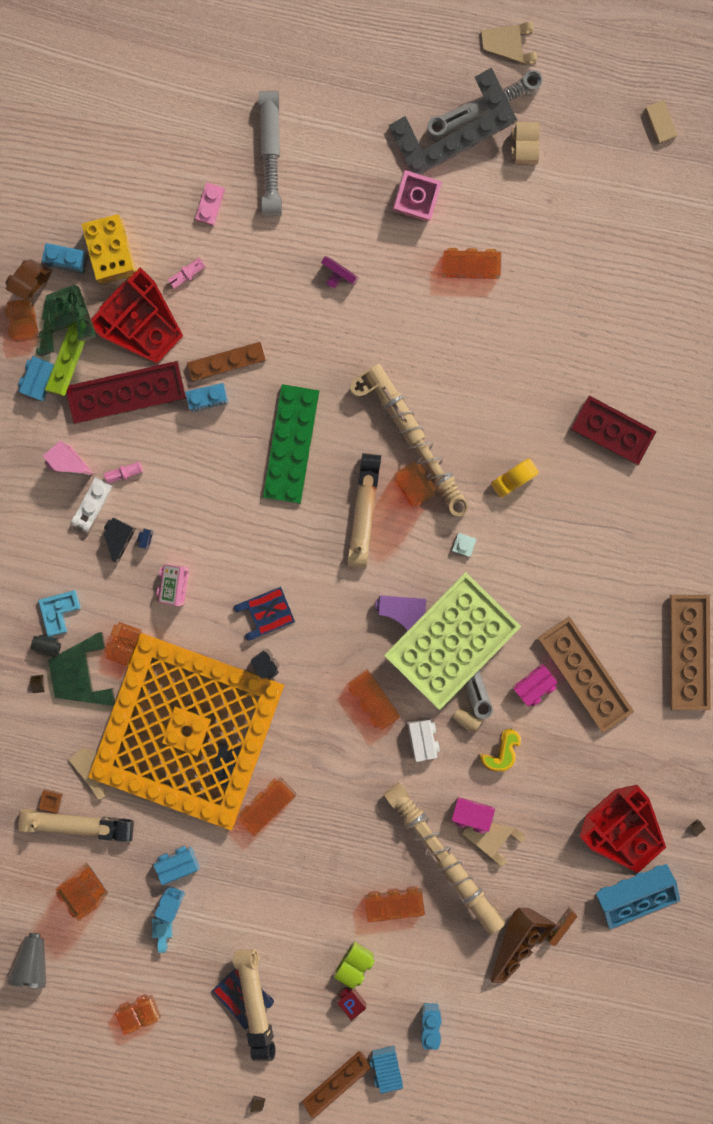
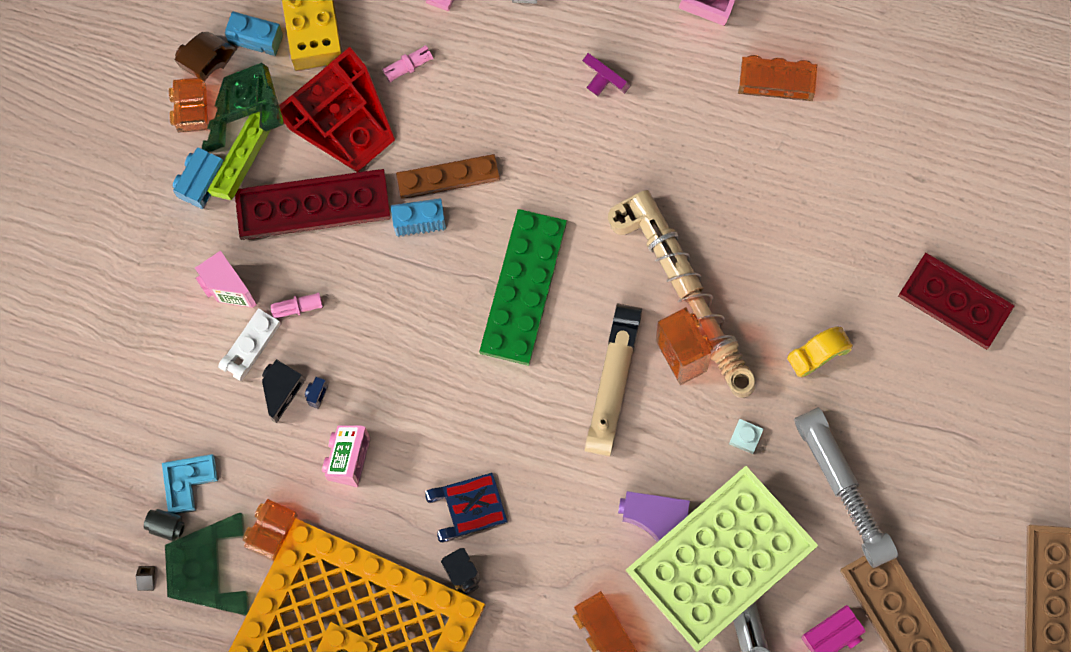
camera: 10 degrees right, 15 degrees down
(536, 575) = (816, 432): none -> light grey piece

